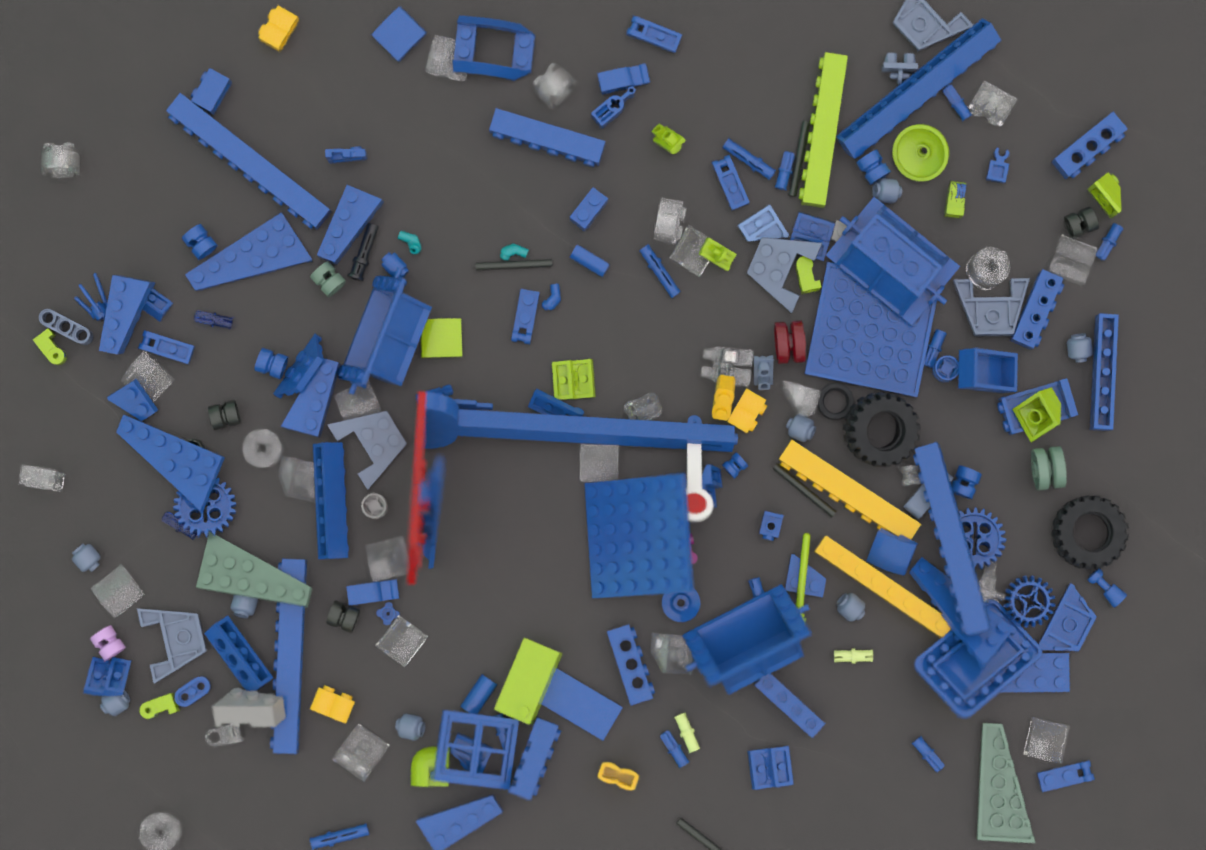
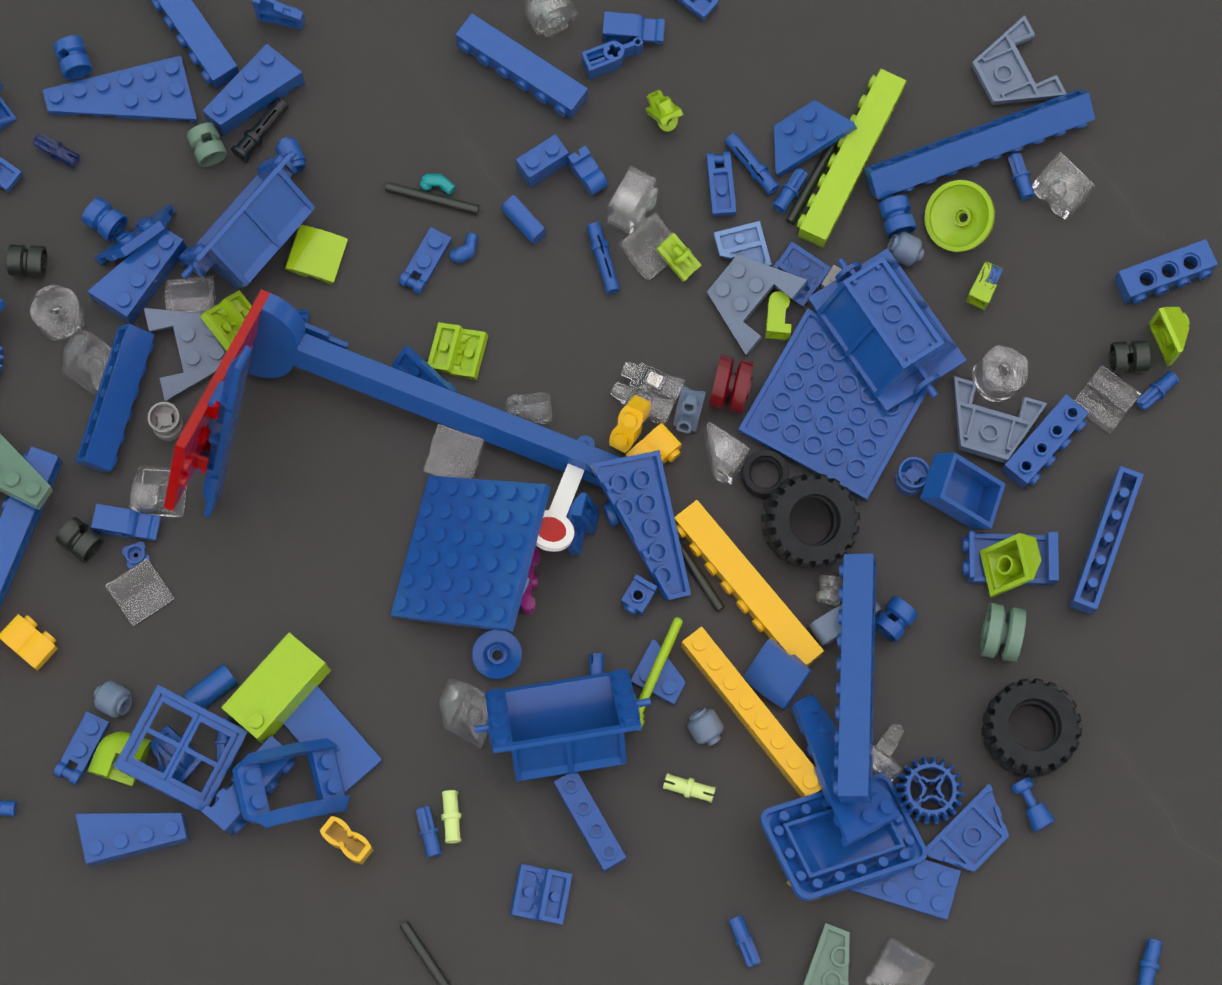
camera: 15 degrees right, 10 degrees down
(361, 752) = (40, 711): clear slope -> none
(397, 413) = (227, 317): none -> lime slope
(400, 768) = (82, 748): none -> blue plate
(412, 240) = (323, 136): teal arm -> none
(587, 735) = (325, 777): none -> blue wedge
(626, 206) = (587, 171): none -> blue leg
(634, 694) = (404, 670): brick -> none
(754, 458) = (643, 504): none -> blue wing
(784, 122) = (807, 134): none -> blue wing
(801, 428) = (713, 492): sand blue head -> none
(890, 65) = (963, 116): sand blue hips -> none
(934, 348) = (906, 448): blue axle -> none
(991, 540) = (906, 699): blue gear -> none
(998, 169) = (1047, 265): blue plate -> none
(1079, 347) = (1084, 502): sand blue head -> none

